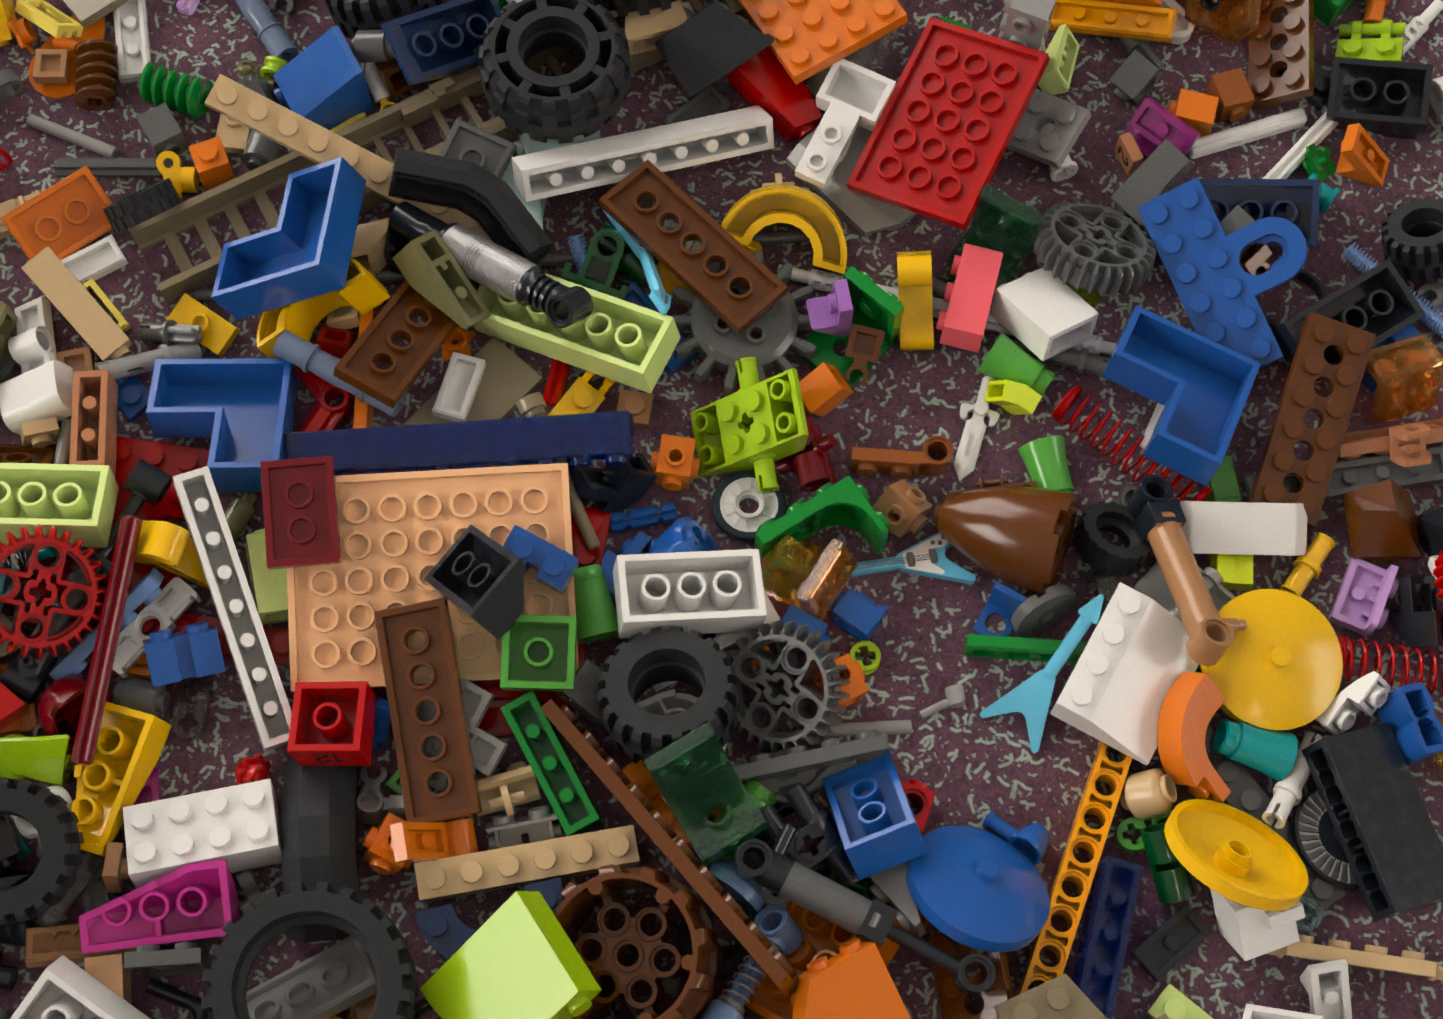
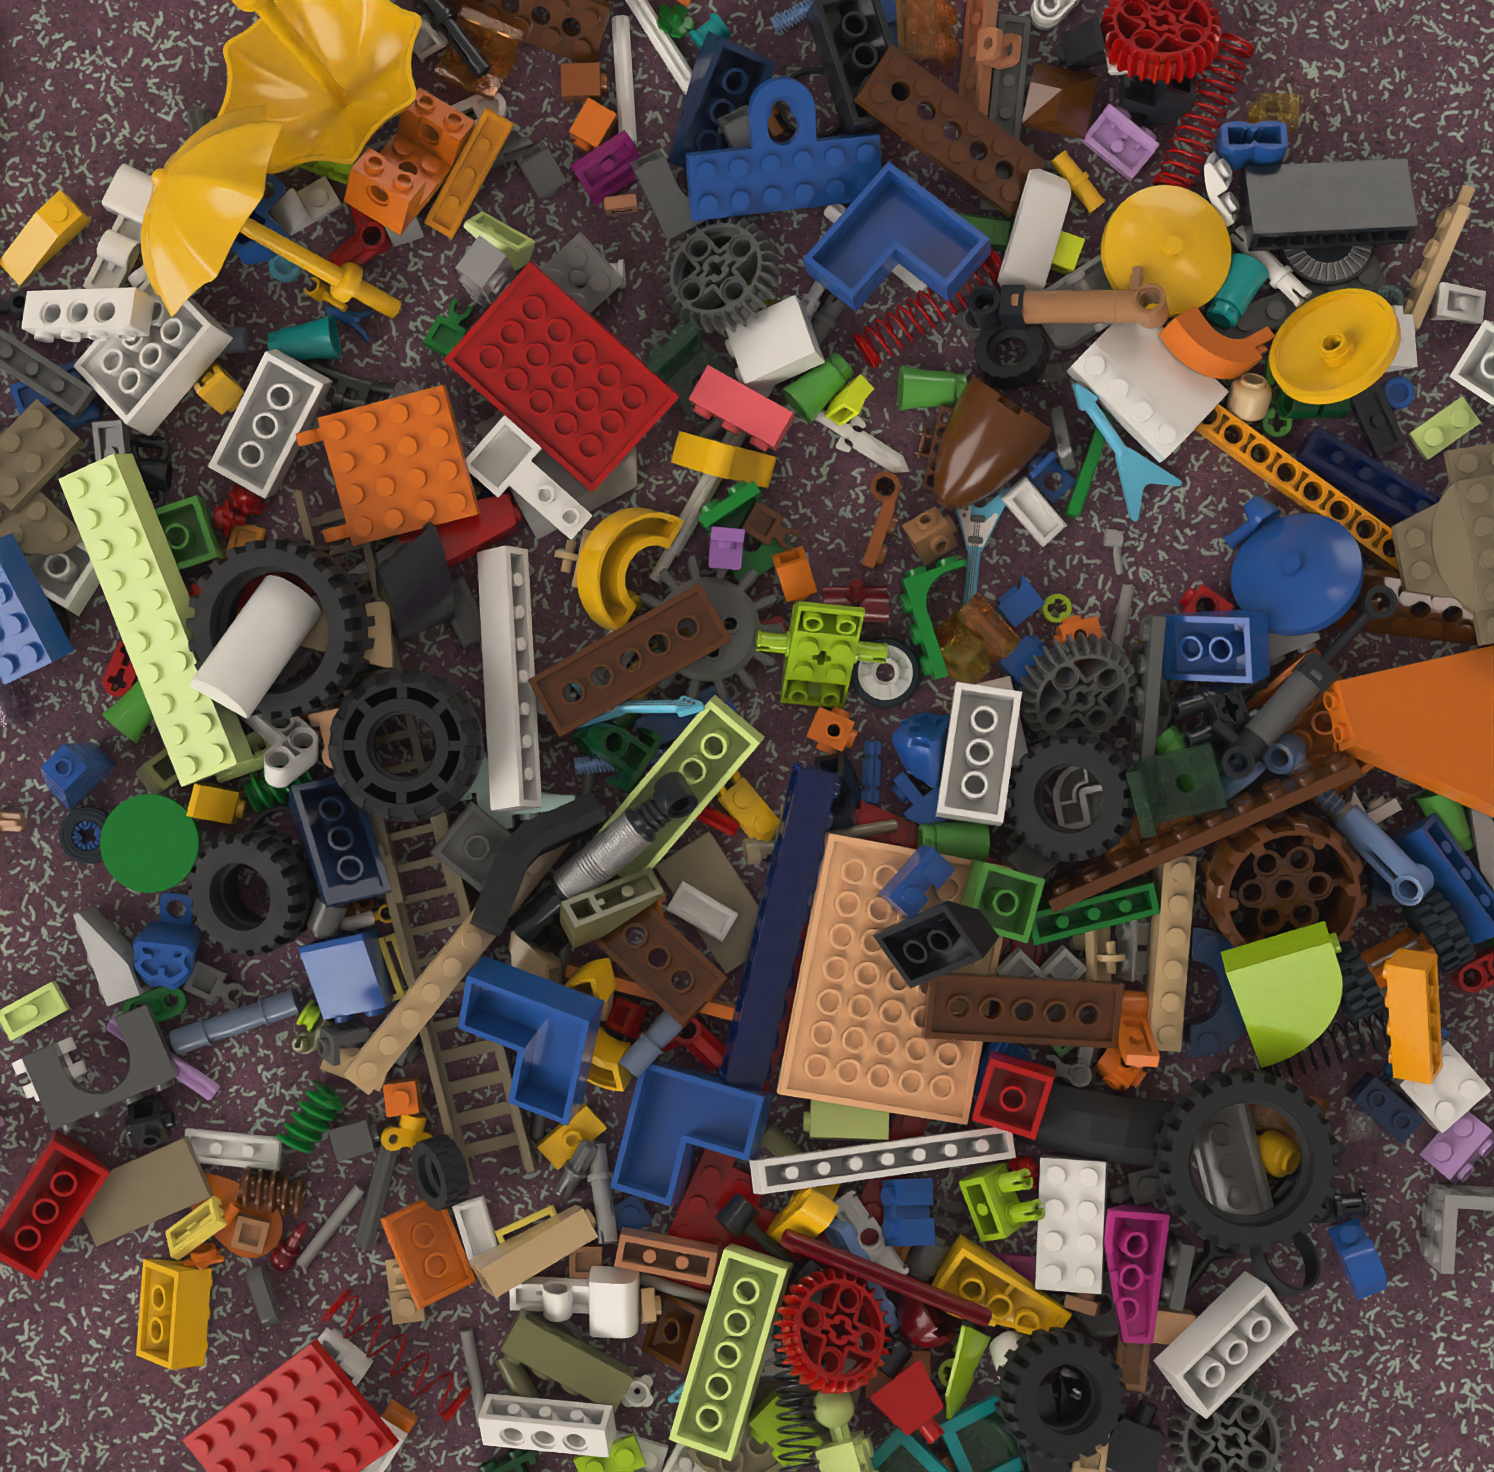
camera: 75 degrees left, 20 degrees up
(41, 104) = (284, 1256): none -> dark red bar
(212, 748) = (994, 1202): none -> lime brick
(300, 512) = (819, 1085): dark red plate -> none
(638, 404) = (764, 755): medium nougat plate -> none
(957, 607) = (1033, 511): none -> white tile
(1208, 960) = (1398, 392): none -> blue tile

